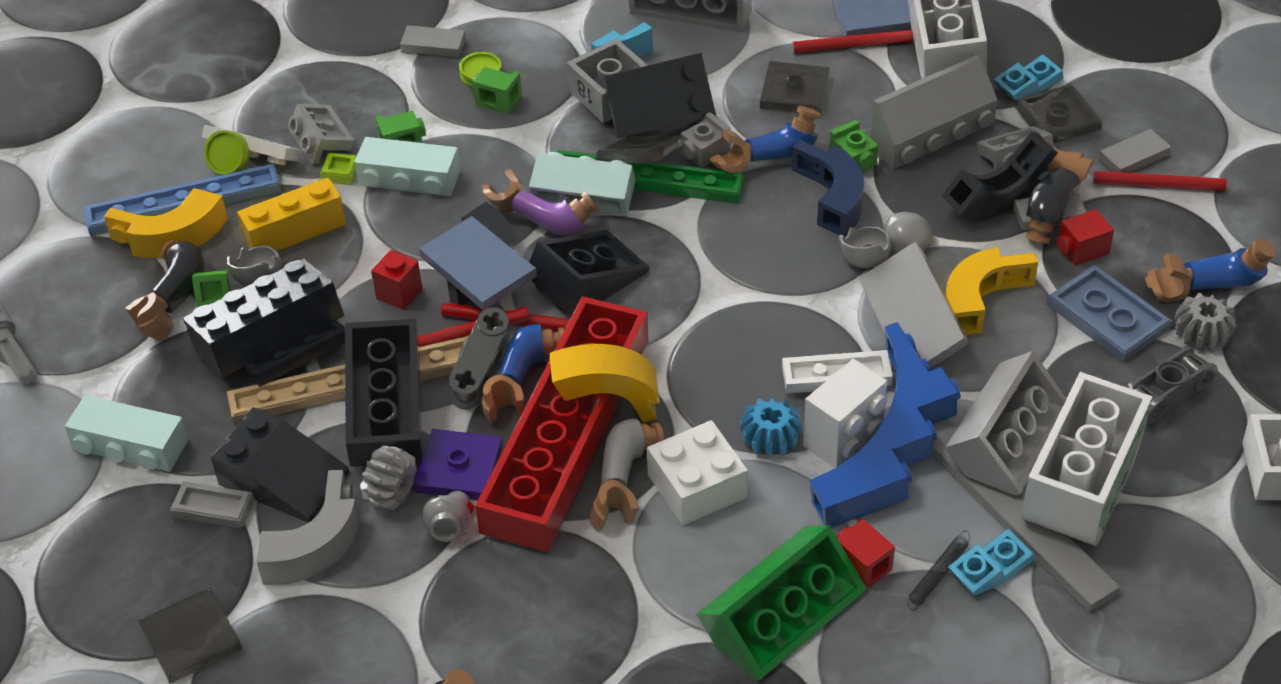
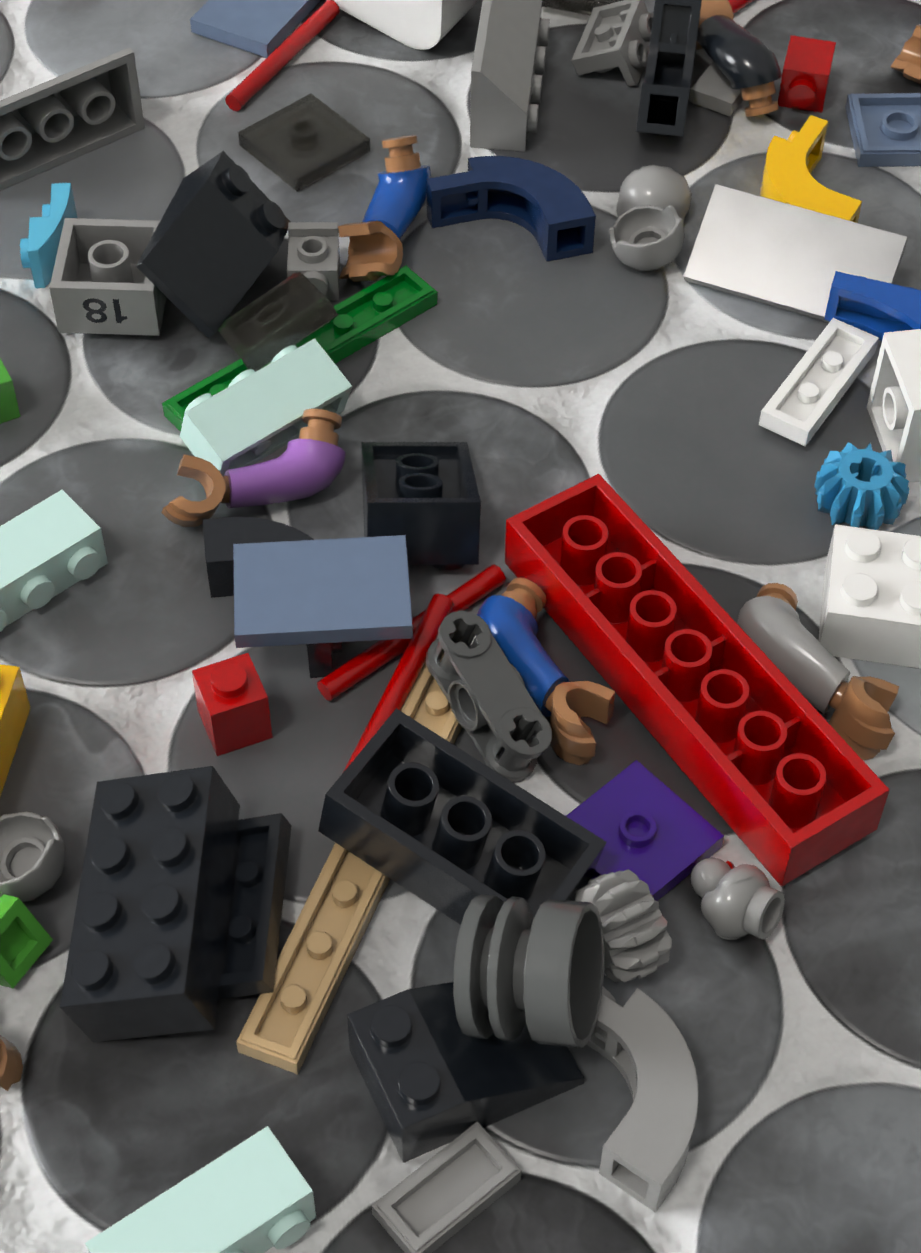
camera: 55 degrees left, 5 degrees up
(310, 442) = (529, 970): none -> dark grey wheel
(606, 369) = (687, 572): yellow arch -> none
(856, 144) = (470, 141): bright green brick -> none

